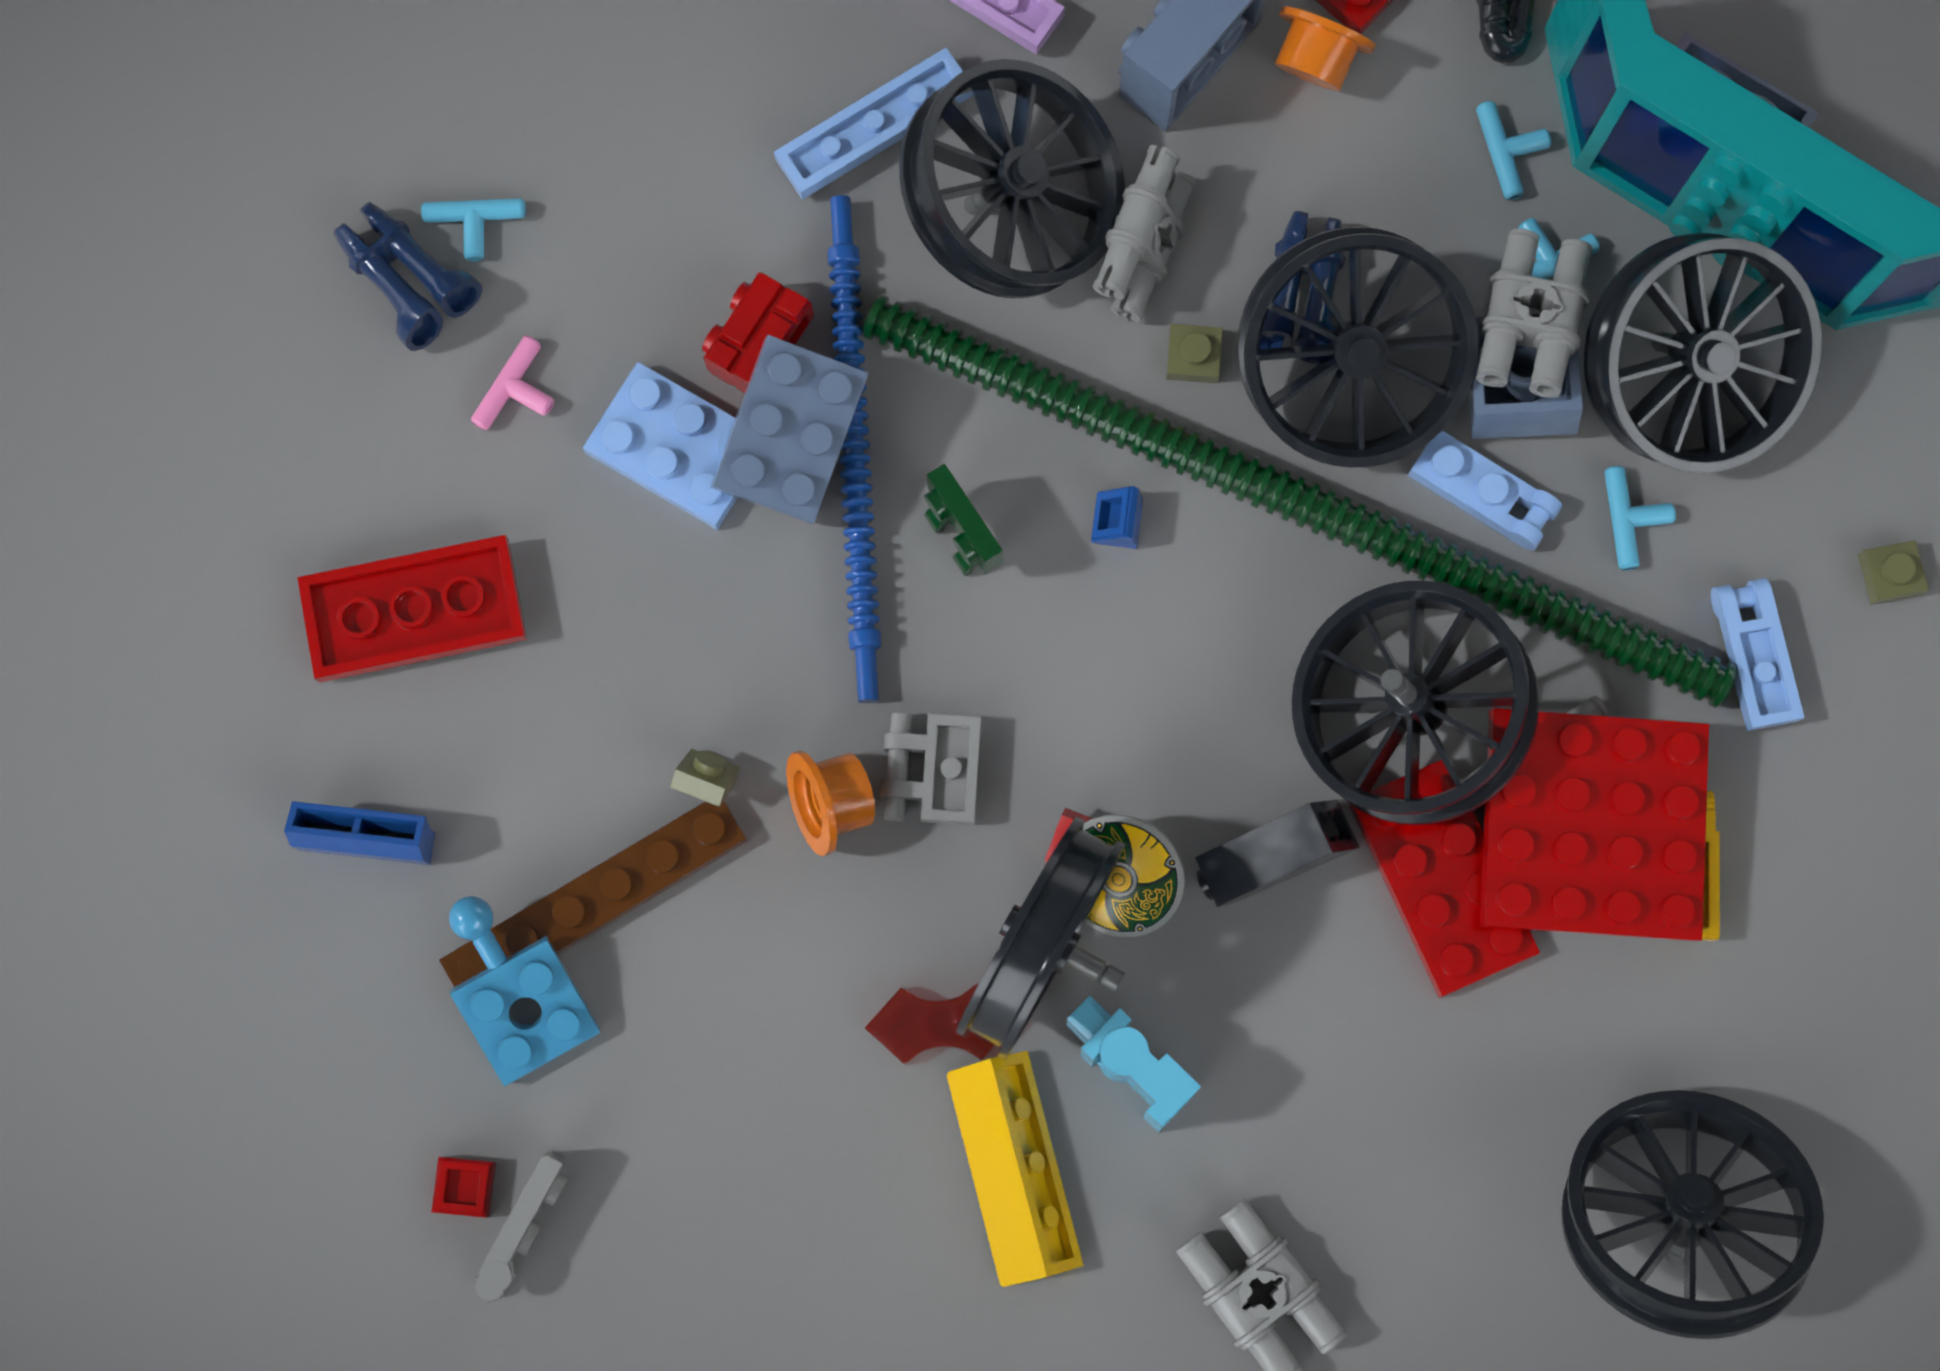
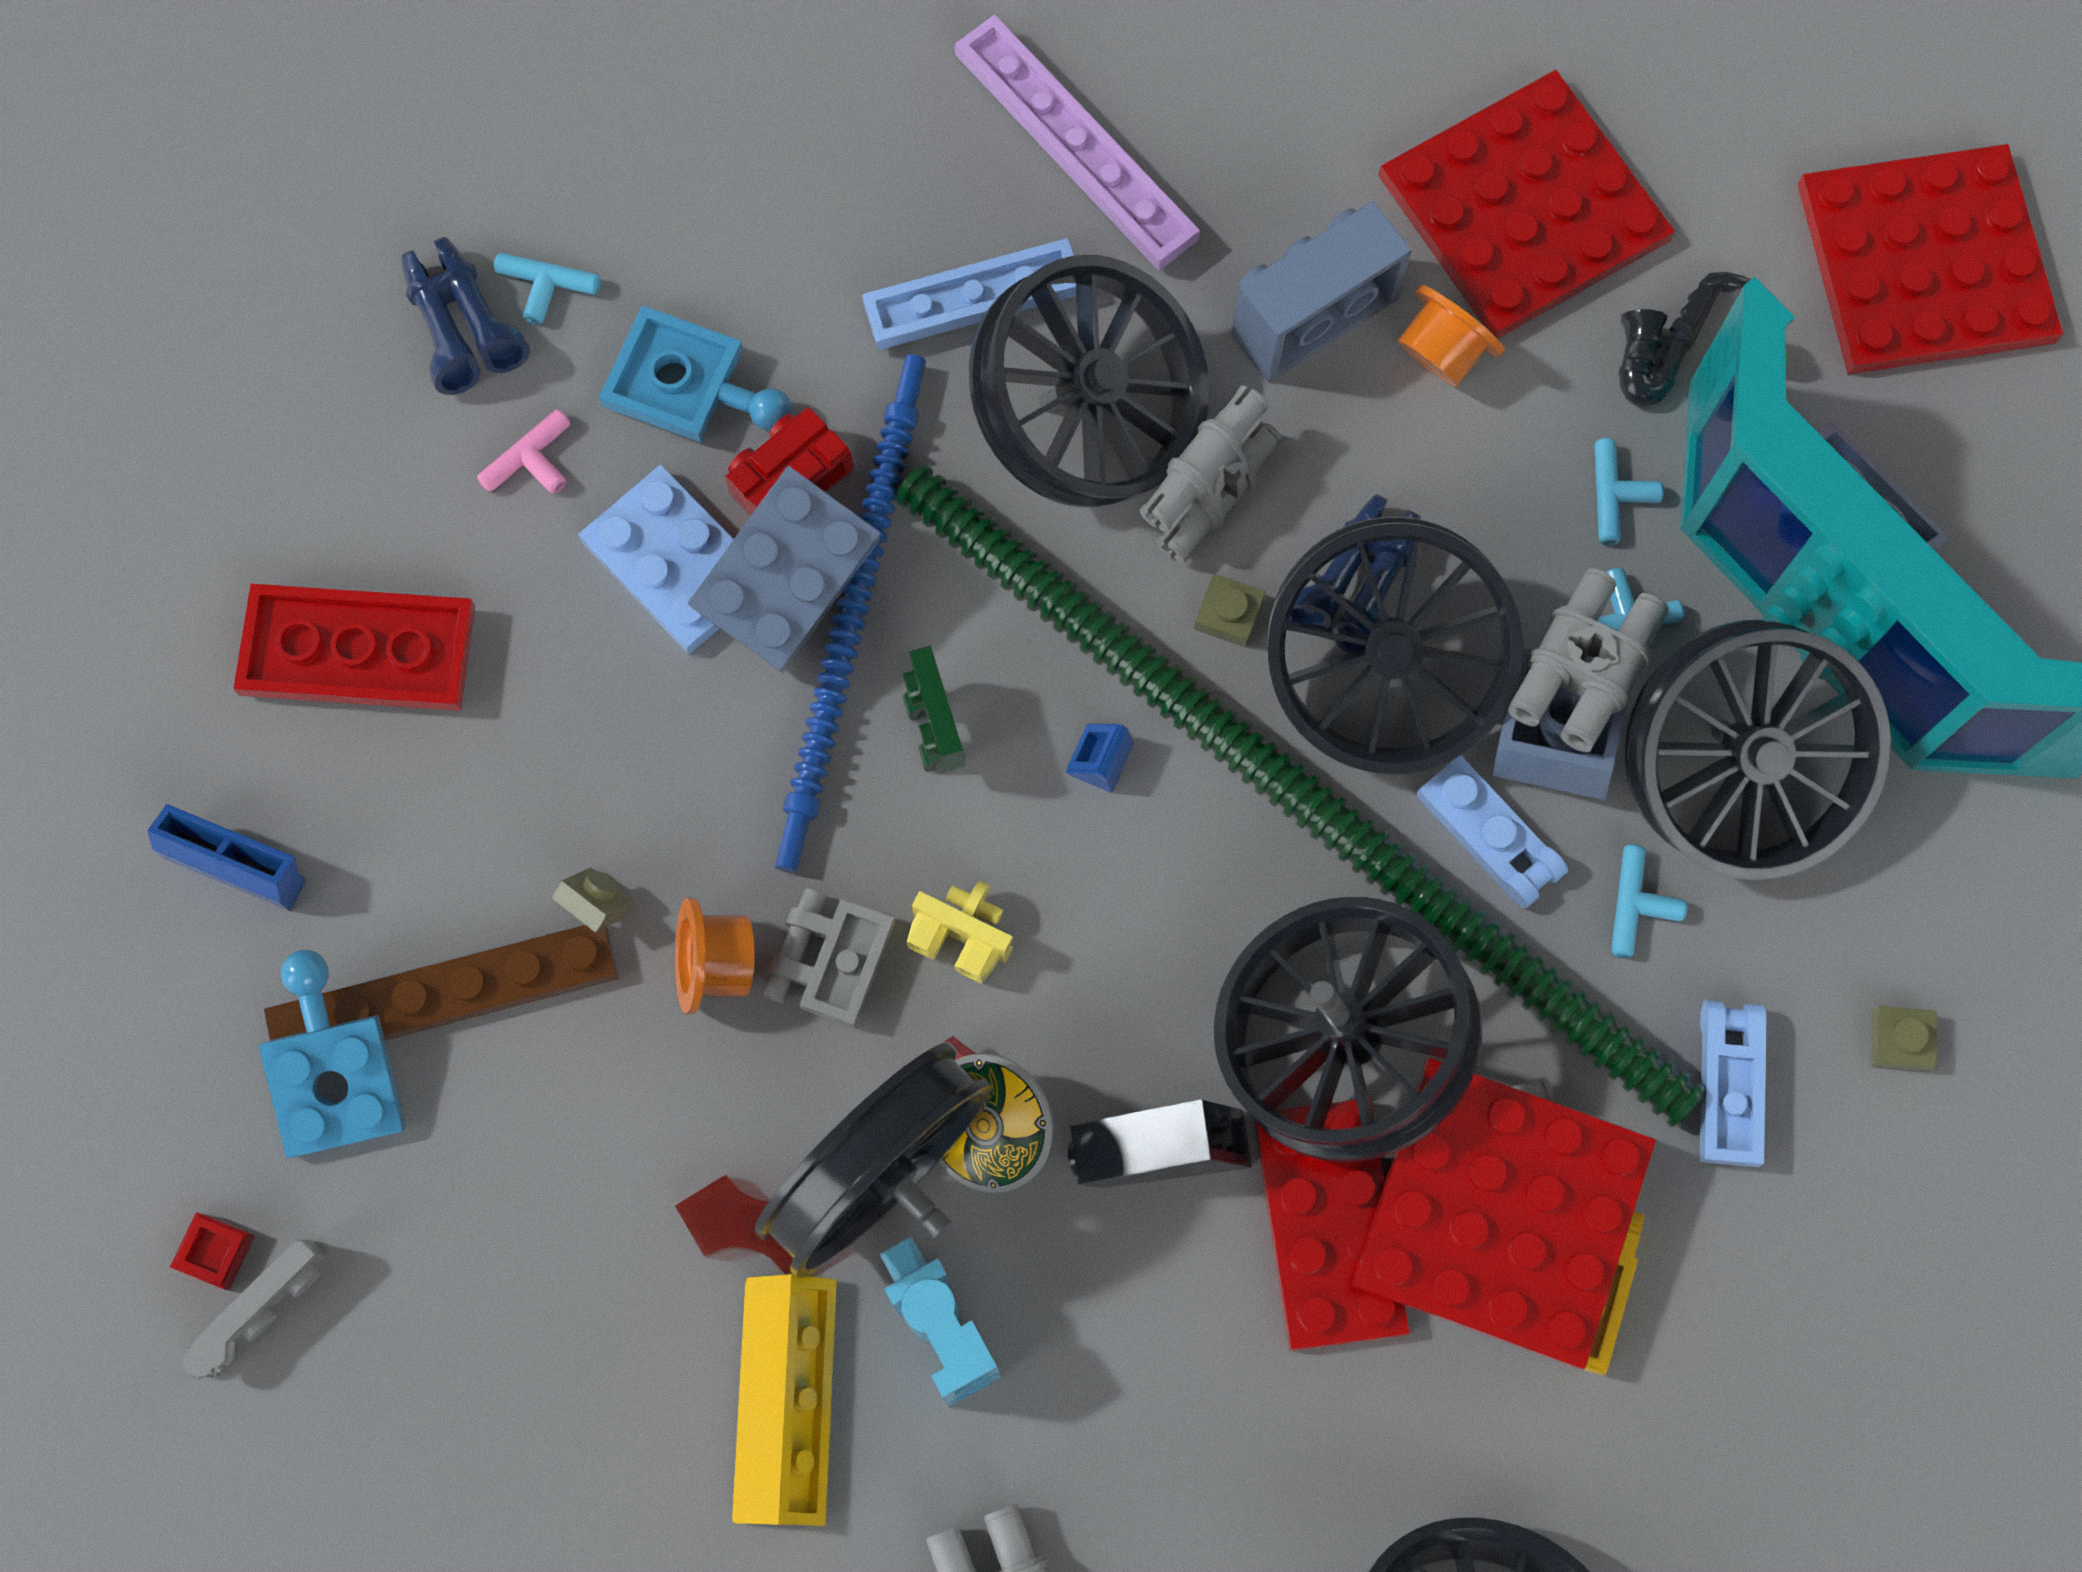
camera: 15 degrees right, 5 degrees down
(647, 296) = (692, 402): none -> dark azure plate
(1019, 707) = (982, 942): none -> light yellow hips

